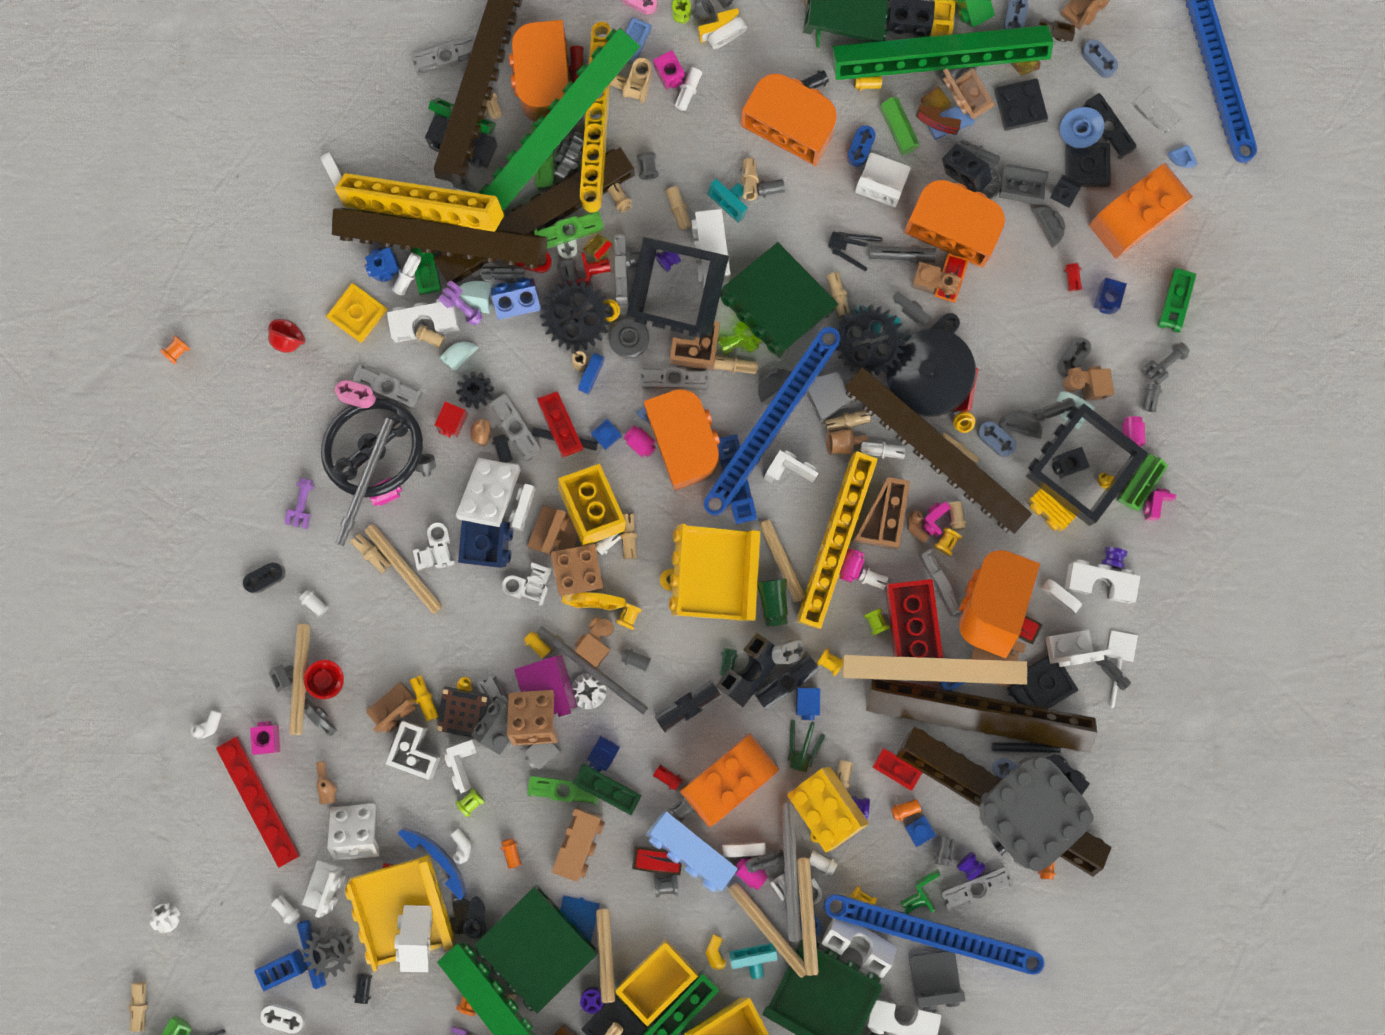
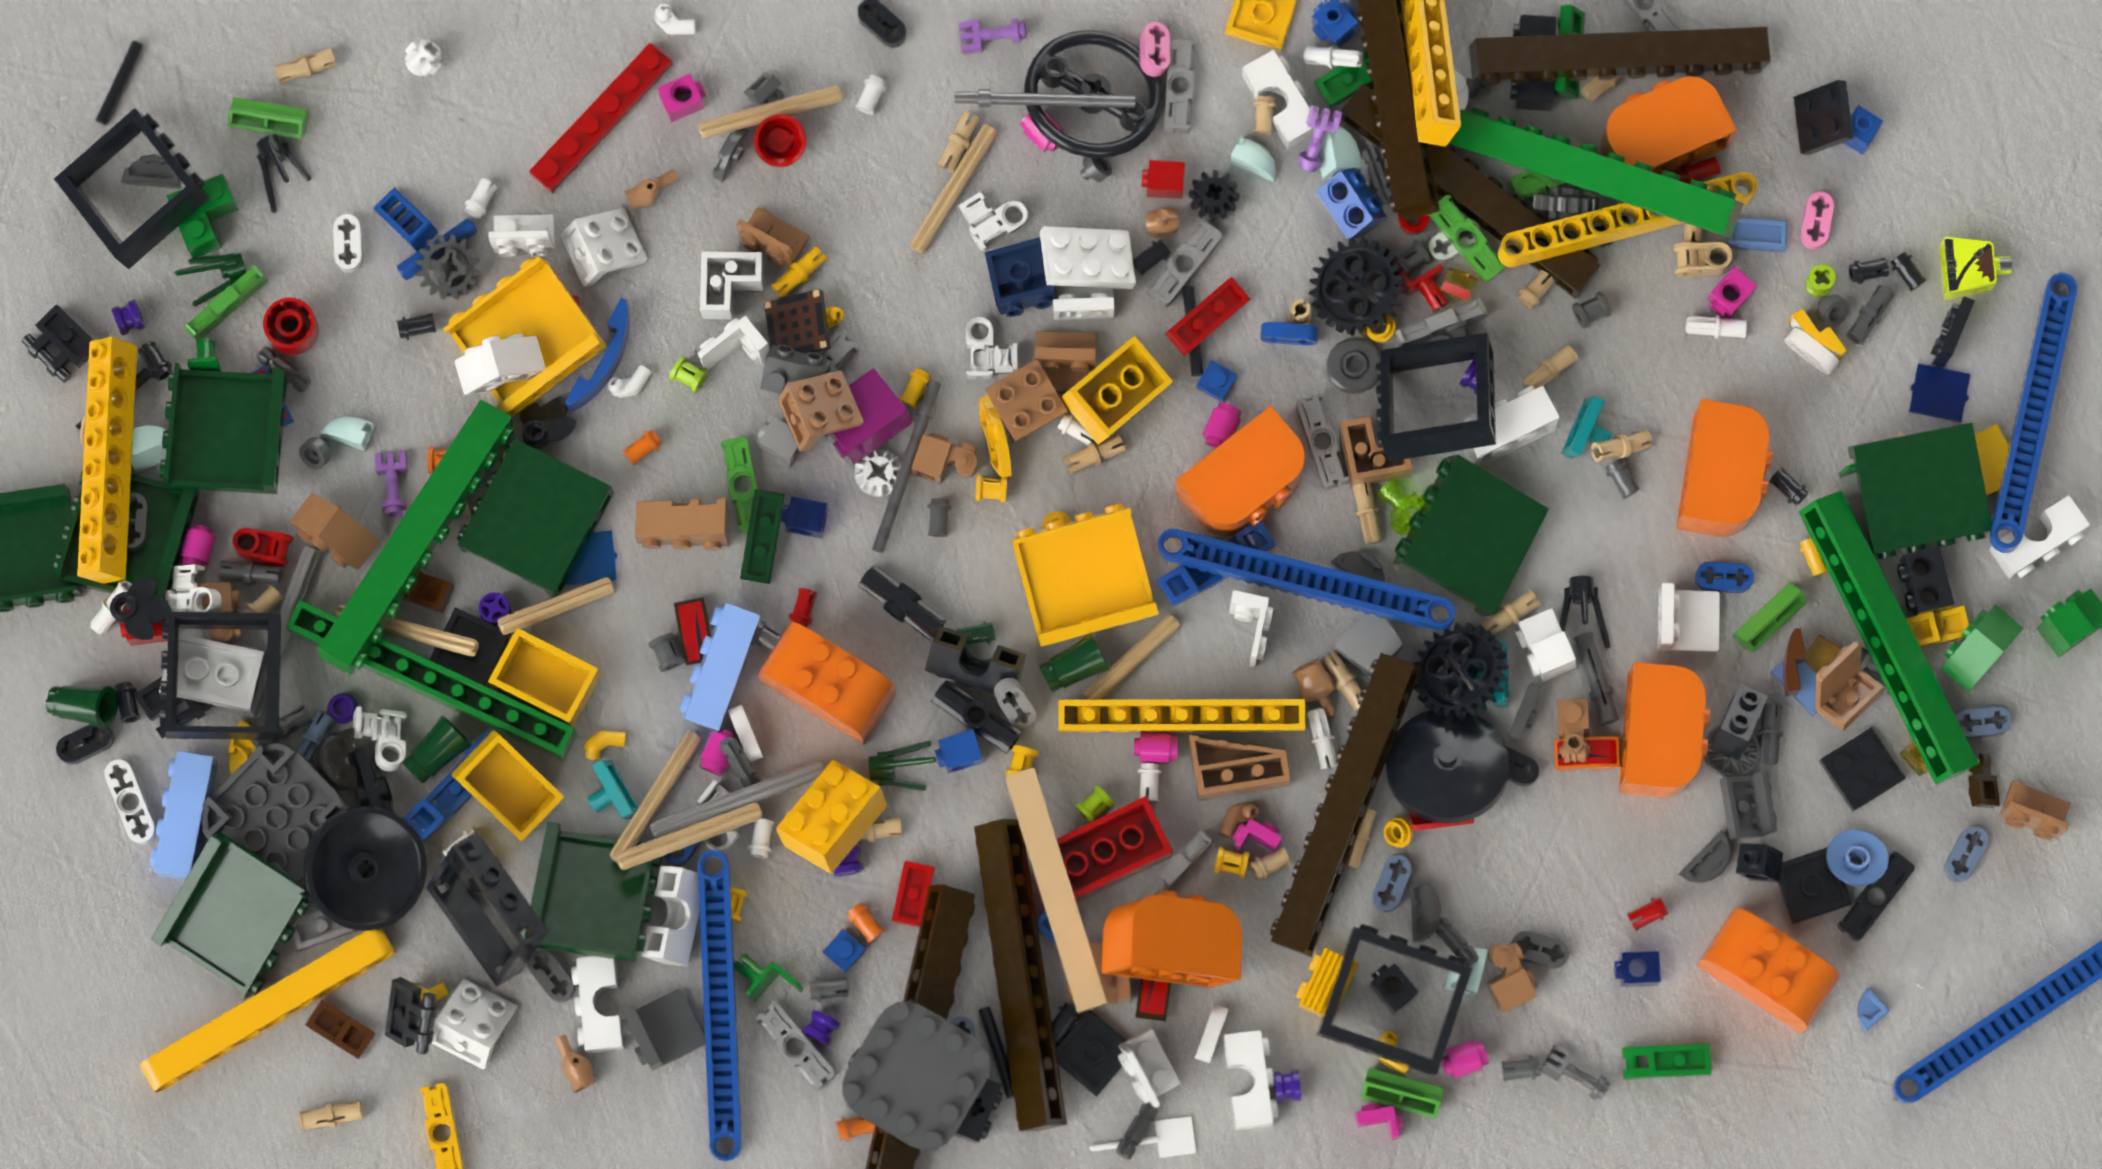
camera: 70 degrees right, 5 degrees down
(876, 277) = (1547, 646): none -> white brick

